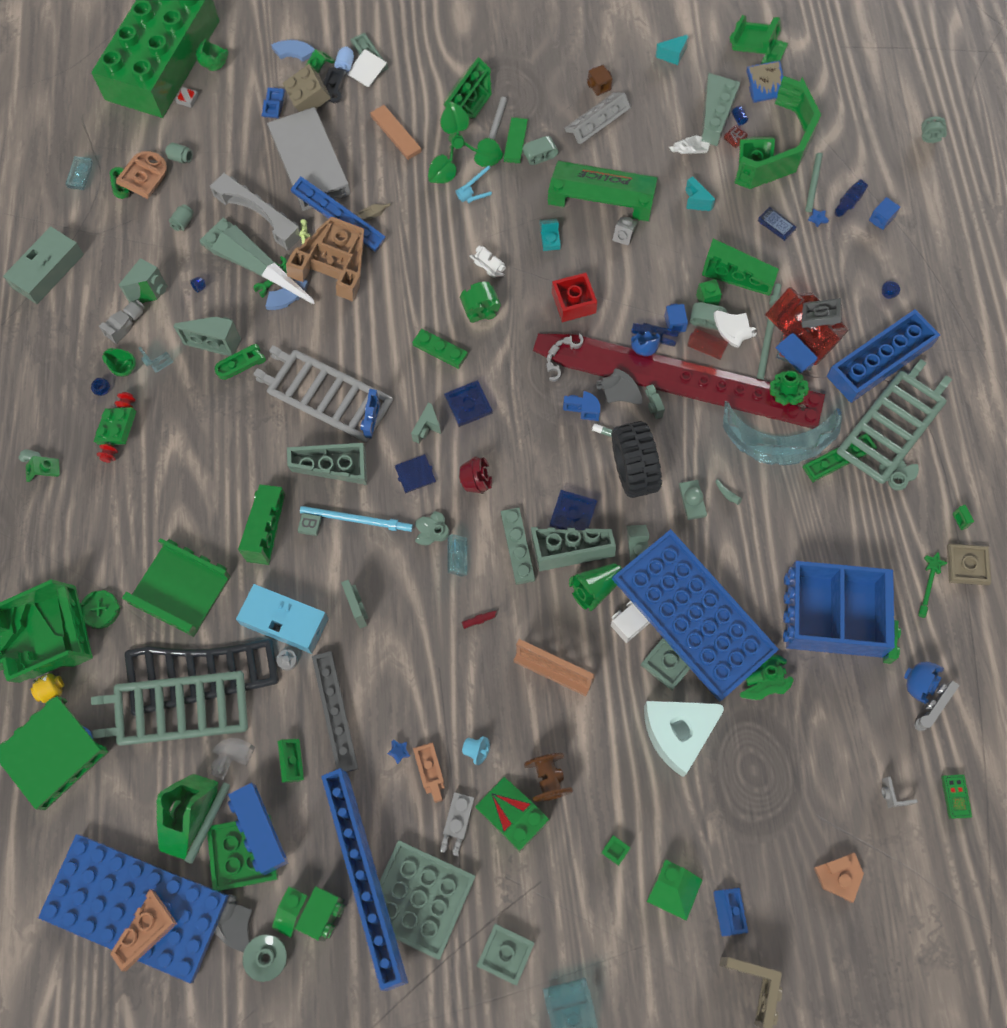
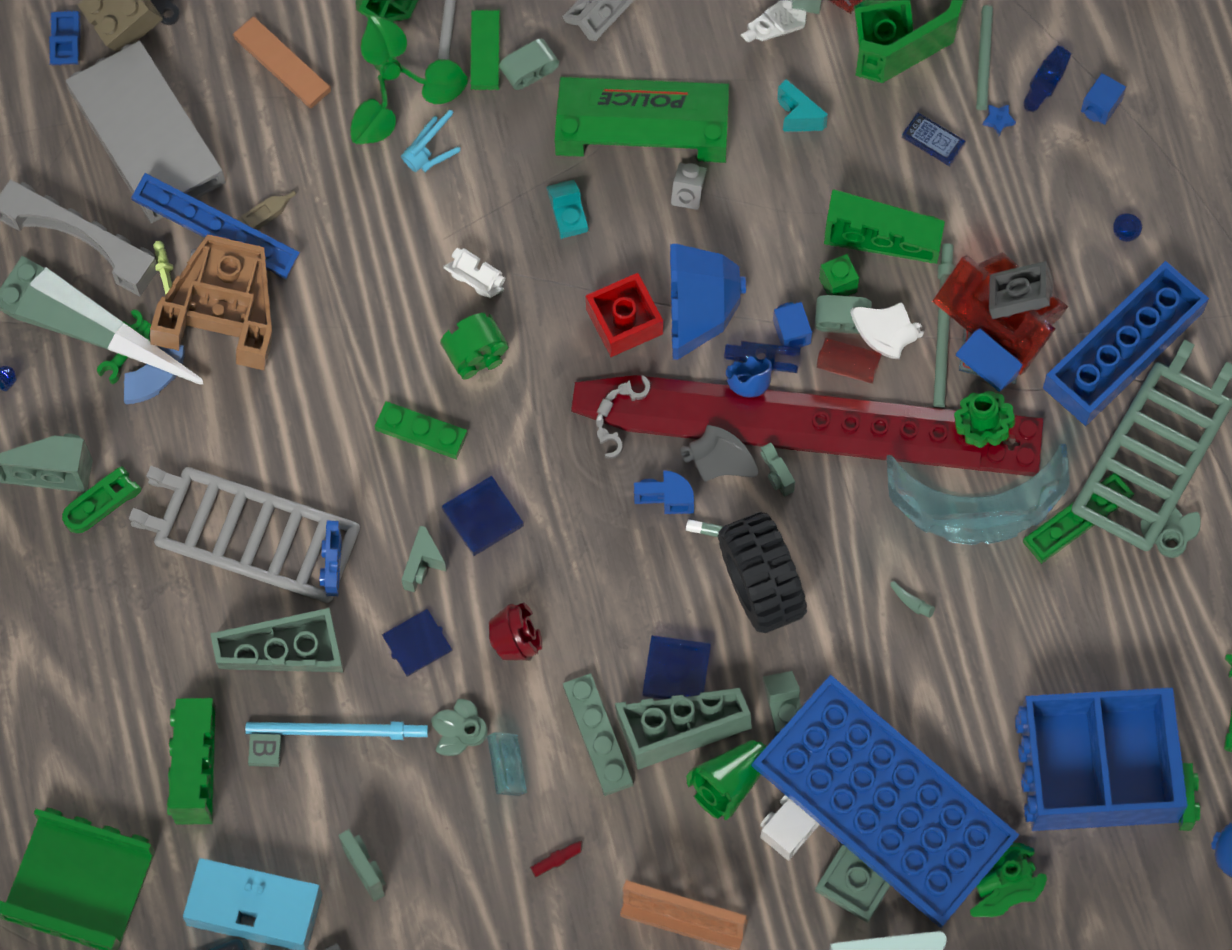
camera: 10 degrees left, 0 degrees up
(623, 292) = (703, 296): none -> blue brick
(692, 500) = (859, 620): sand green tile -> none

